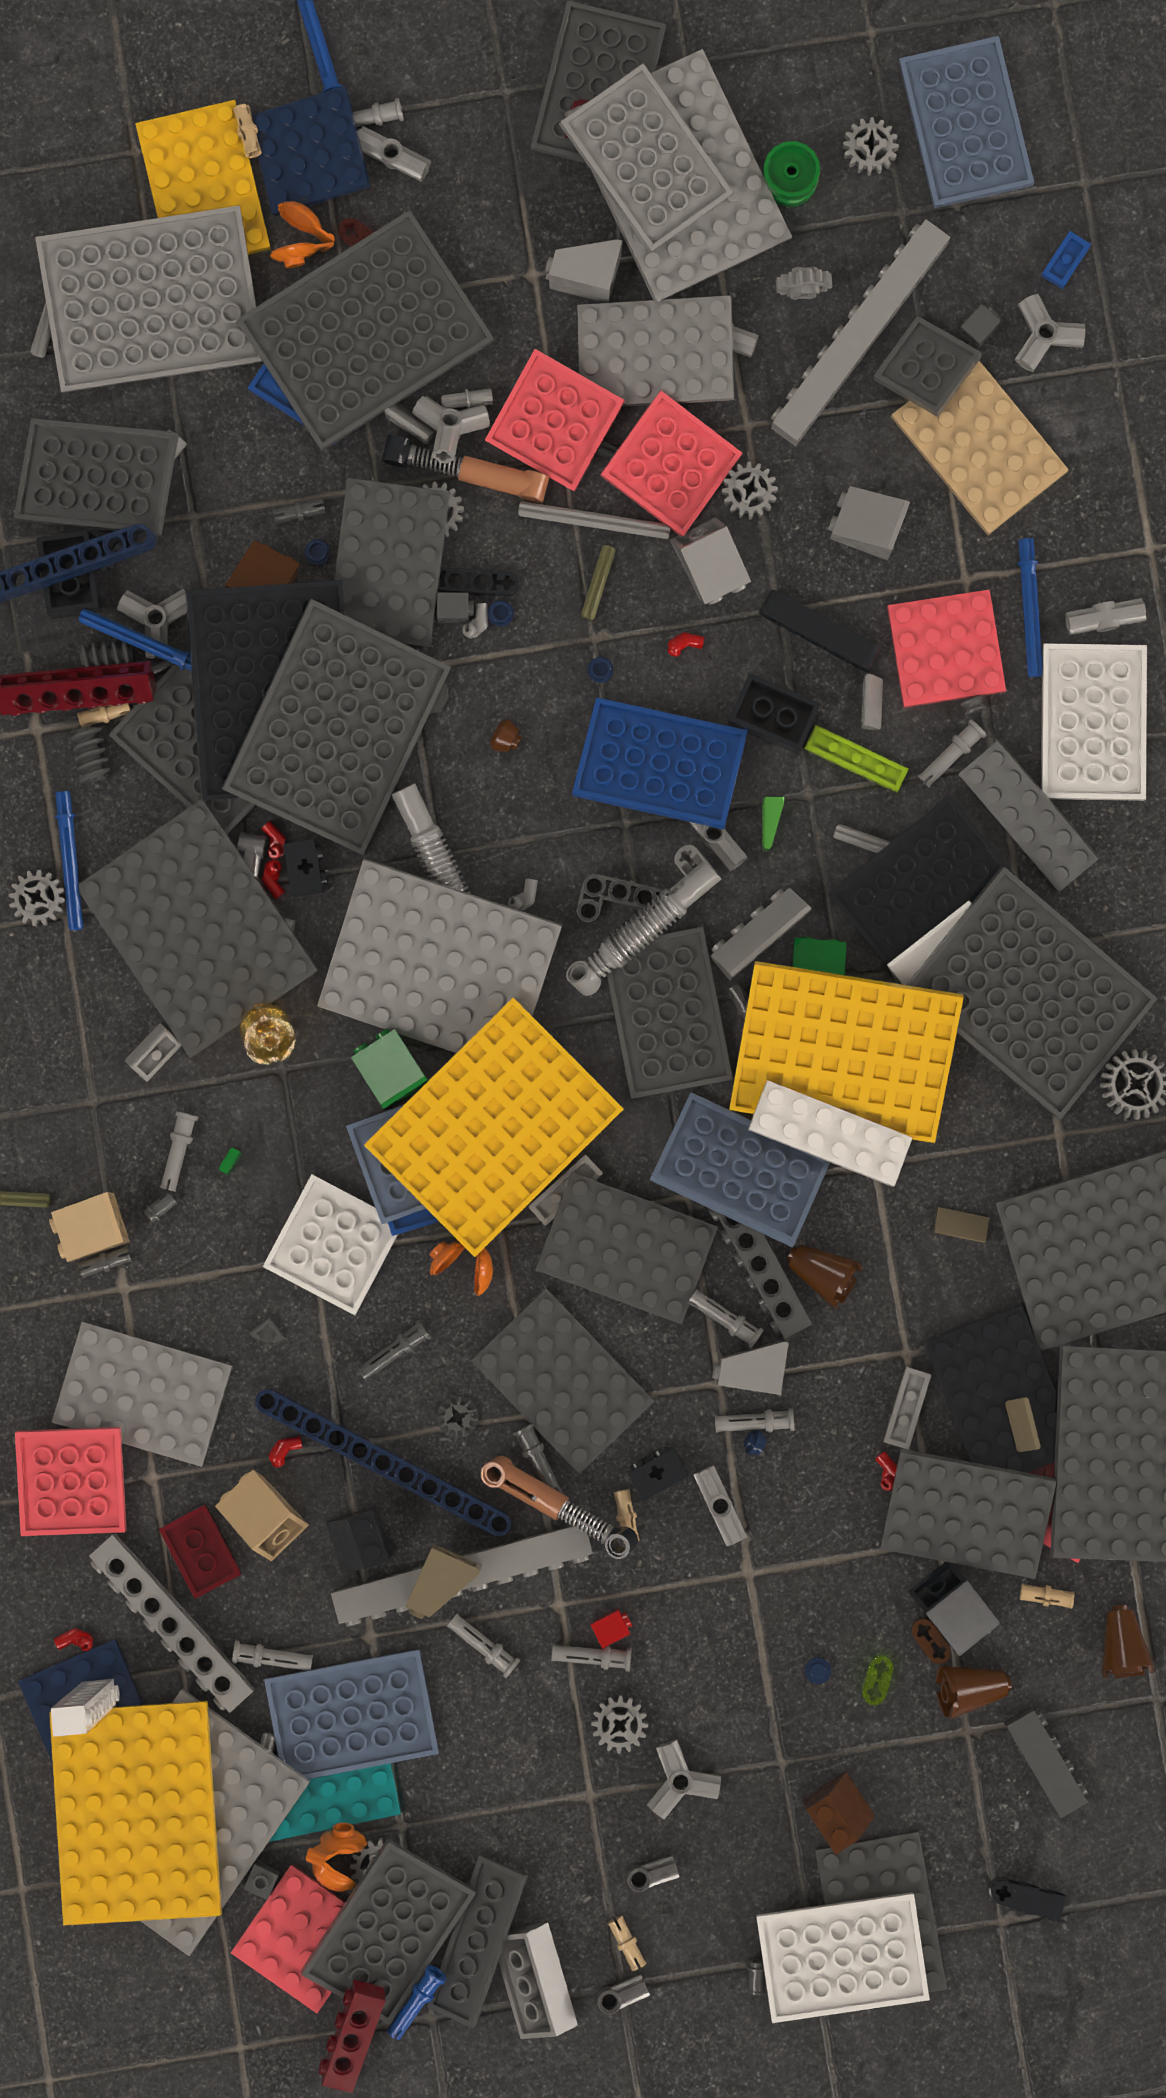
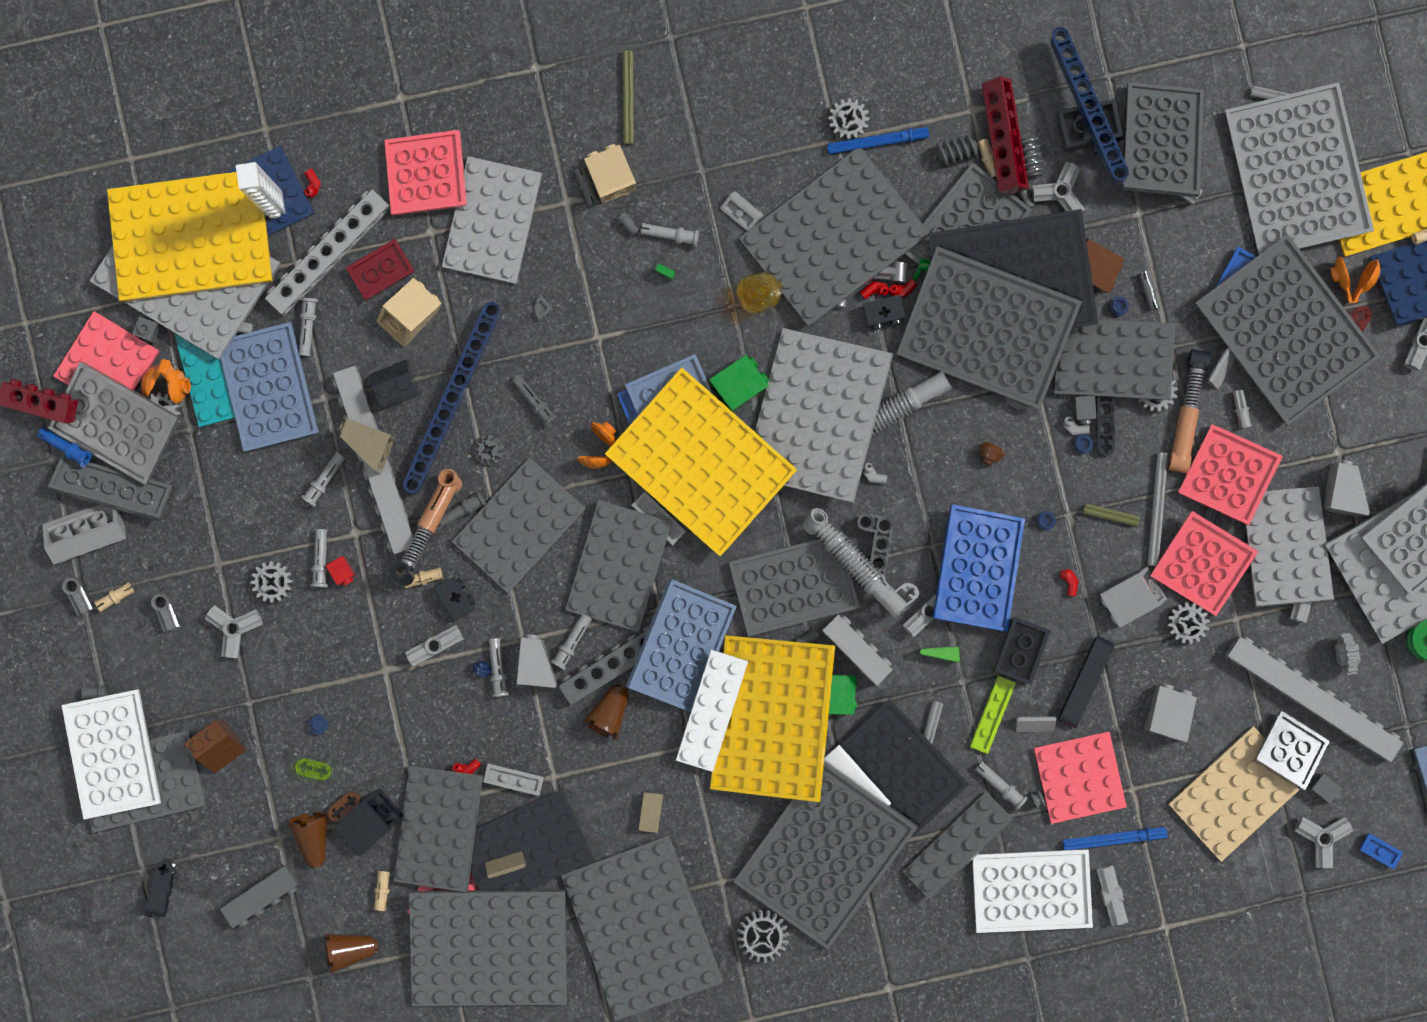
camera: 90 degrees right, 0 degrees up
(136, 639) = (1033, 206): blue axle -> none
(244, 810) = (923, 265): none -> green hand
(281, 1448) = (457, 323): red arm -> none
(331, 1245) = (608, 350): white plate -> none
(449, 425) = (1223, 404): light grey piece -> none

